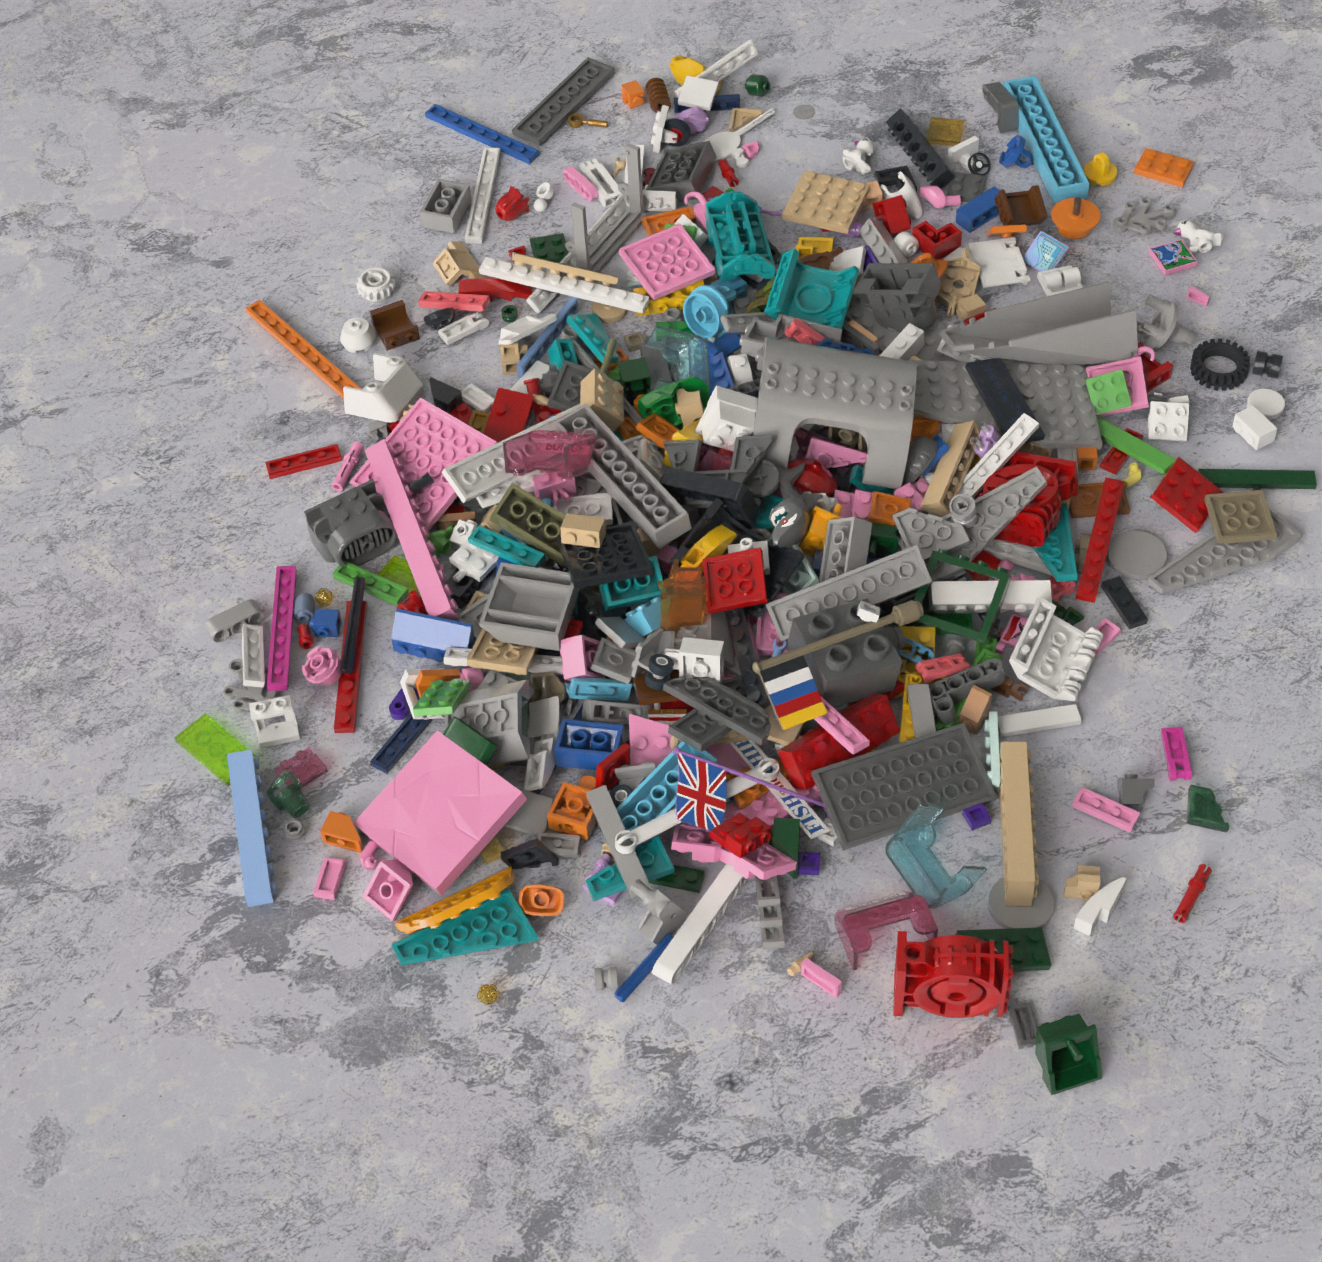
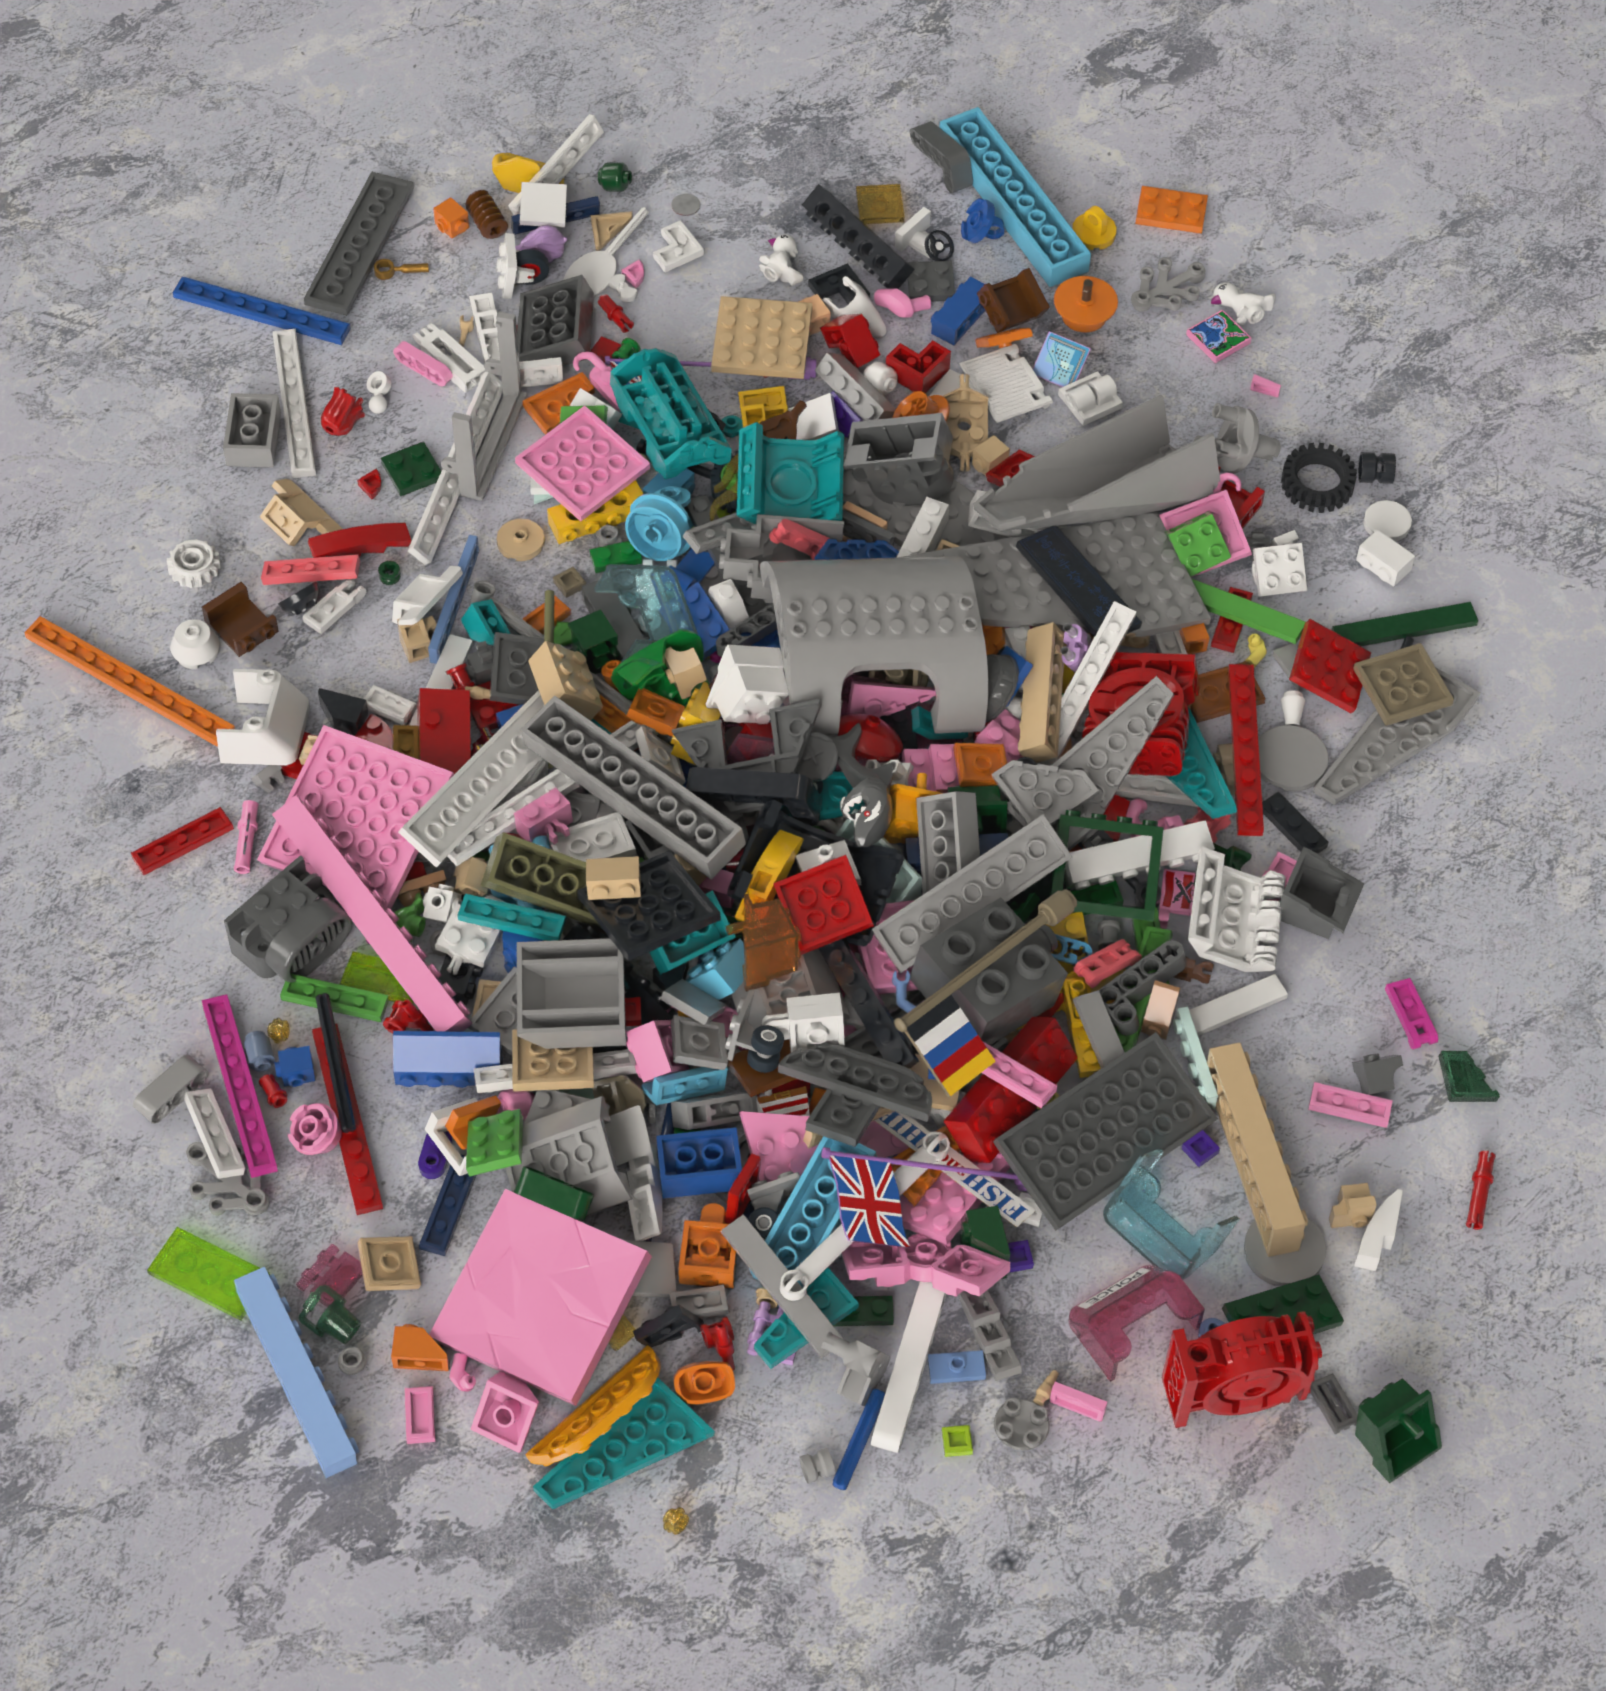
camera: 20 degrees left, 5 degrees up
(279, 732) = (279, 1222): white panel -> none
(343, 769) = (389, 1263): none -> tan tile
(421, 483) = (364, 847): black pin -> none
(549, 451) = (532, 773): clear pink windscreen -> none
(563, 871) = (721, 1337): none -> red piece
(564, 285) = (454, 520): white plate -> none
(571, 271) = (443, 498): tan plate -> none
(592, 333) = (513, 582): teal wing -> none
(719, 986) = (957, 1440): none -> lime tile
(736, 932) = (956, 1367): none -> medium blue plate
(741, 834) = (933, 1242): red plate -> none
(772, 984) = (1021, 1424): none -> light grey dish
(790, 137) = (681, 247): none -> white plate
(868, 612) = (1014, 919): white plate -> none
(963, 510) = (1082, 752): light grey wheel -> none
(1124, 651) = (1319, 895): none -> dark grey piece
(1149, 518) = (1292, 707): none -> white cone

